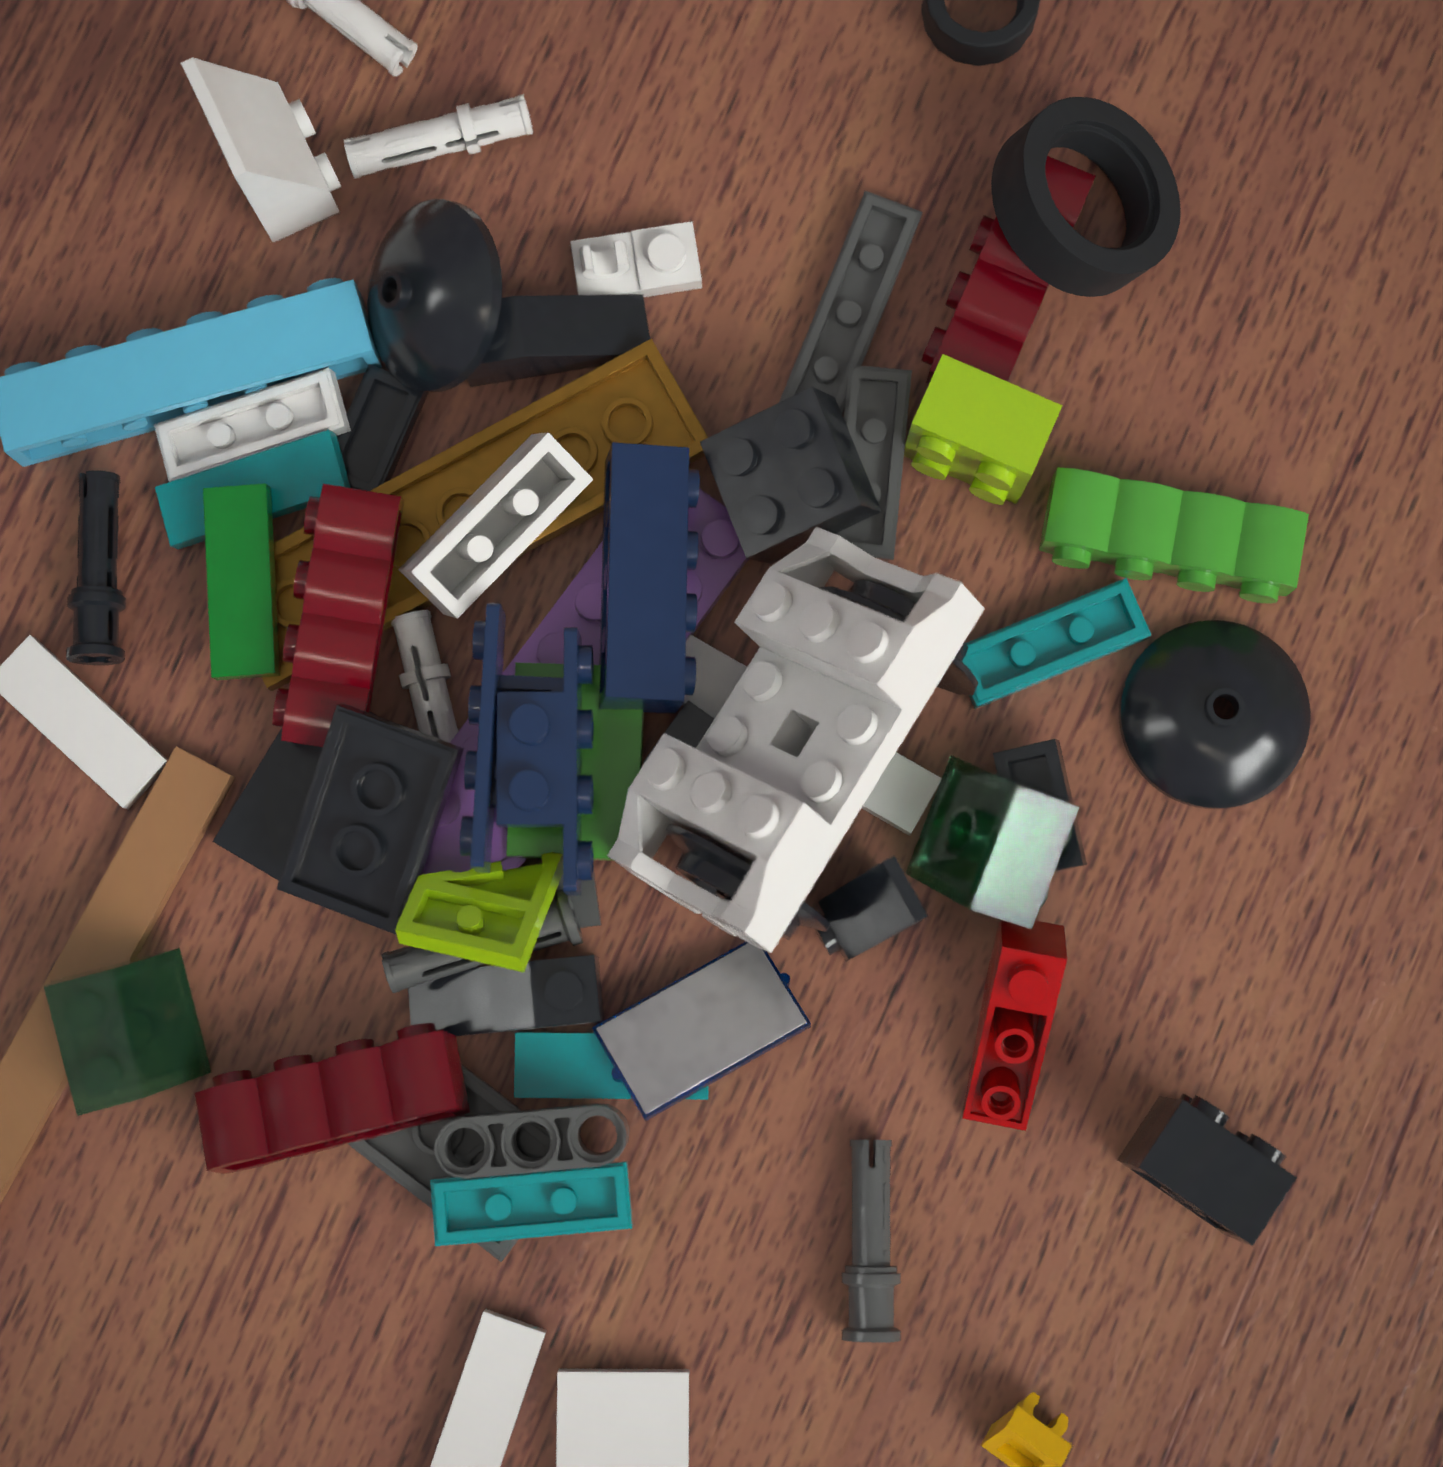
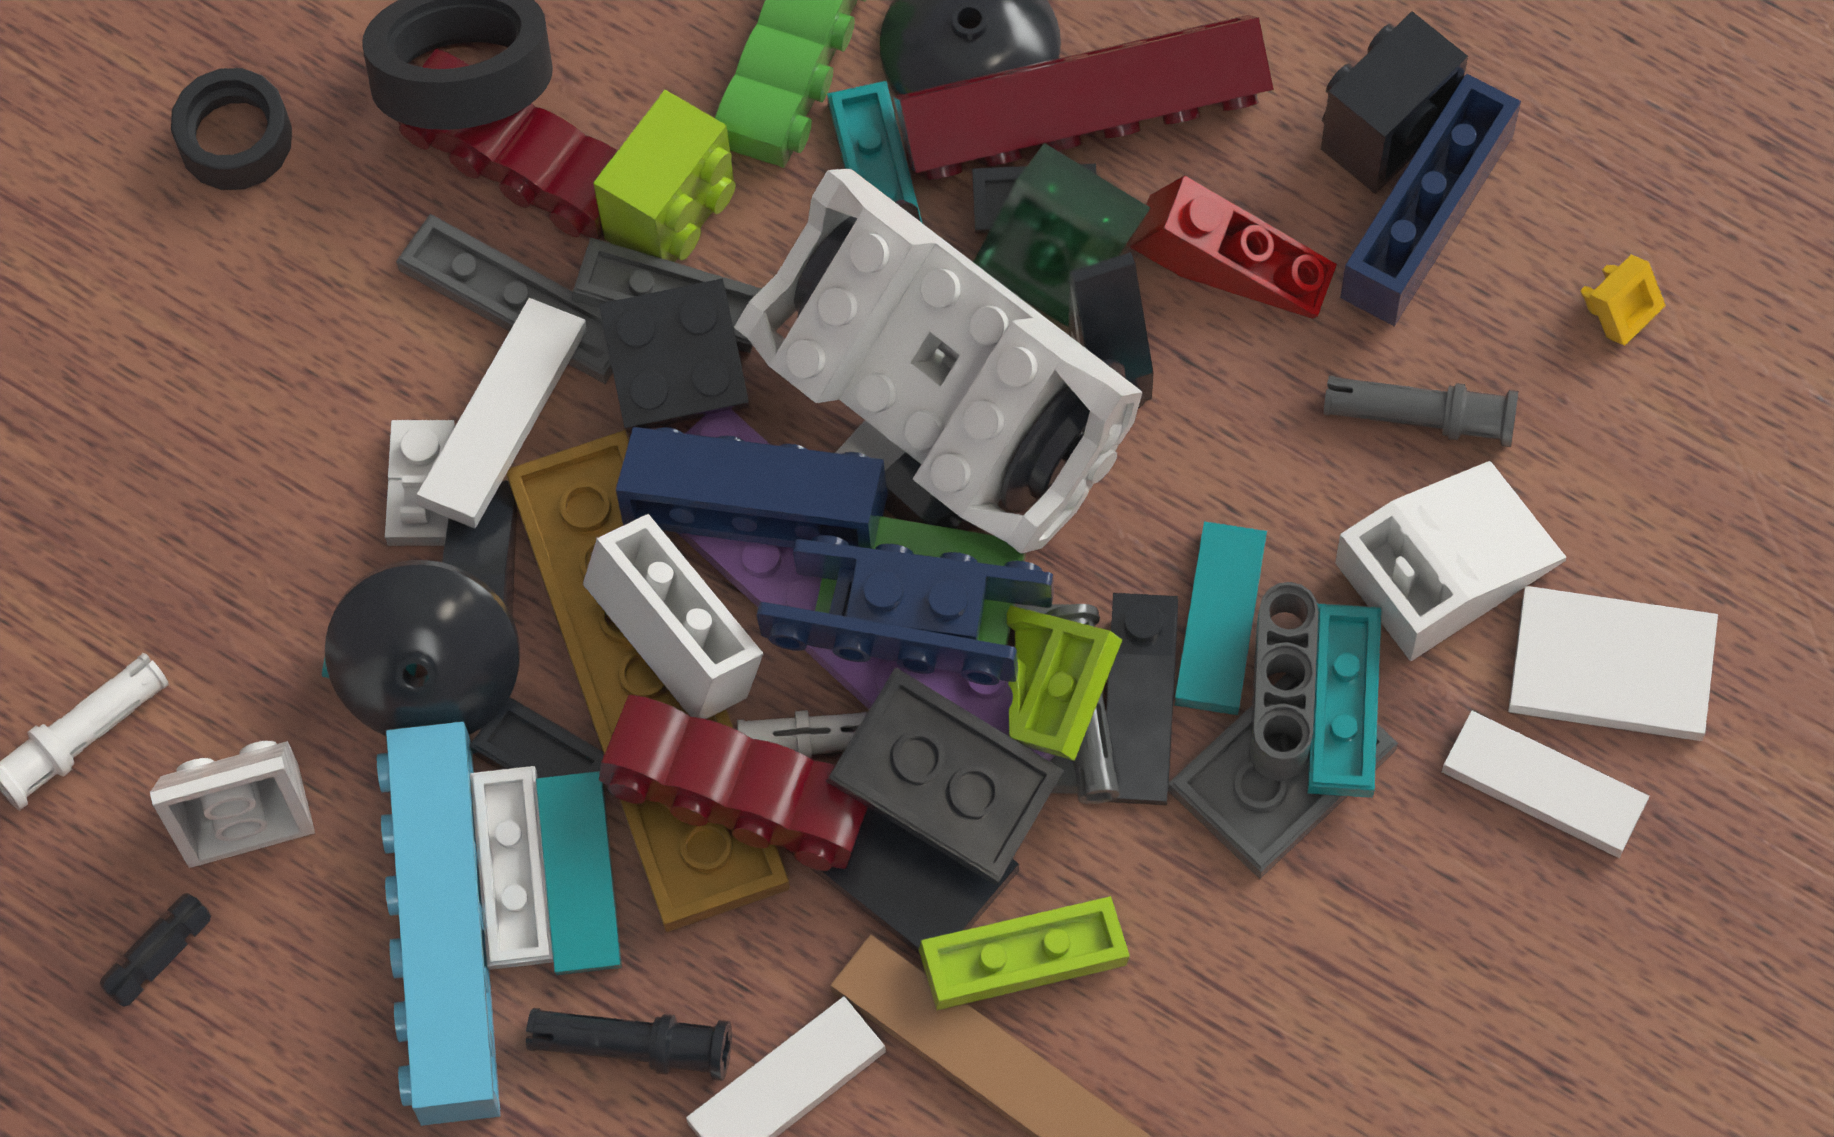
camera: 80 degrees left, 15 degrees down
(127, 1030) = (1117, 1065): clear green slope -> none
(132, 122) = (155, 949): none -> black axle
(226, 924) = (1023, 953): none -> lime plate
(241, 582) = (676, 884): green tile -> none
(331, 1101) = (1218, 868): dark red brick -> none
(450, 133) = (246, 659): white pin -> none
(700, 1028) = (1197, 525): flat silver piece -> none
(704, 321) = (501, 413): none -> white tile
(706, 1293) = (1445, 556): none -> white slope
(1104, 1223) = (1430, 200): none -> dark blue brick
(1163, 841) = (1084, 94): none -> dark red brick

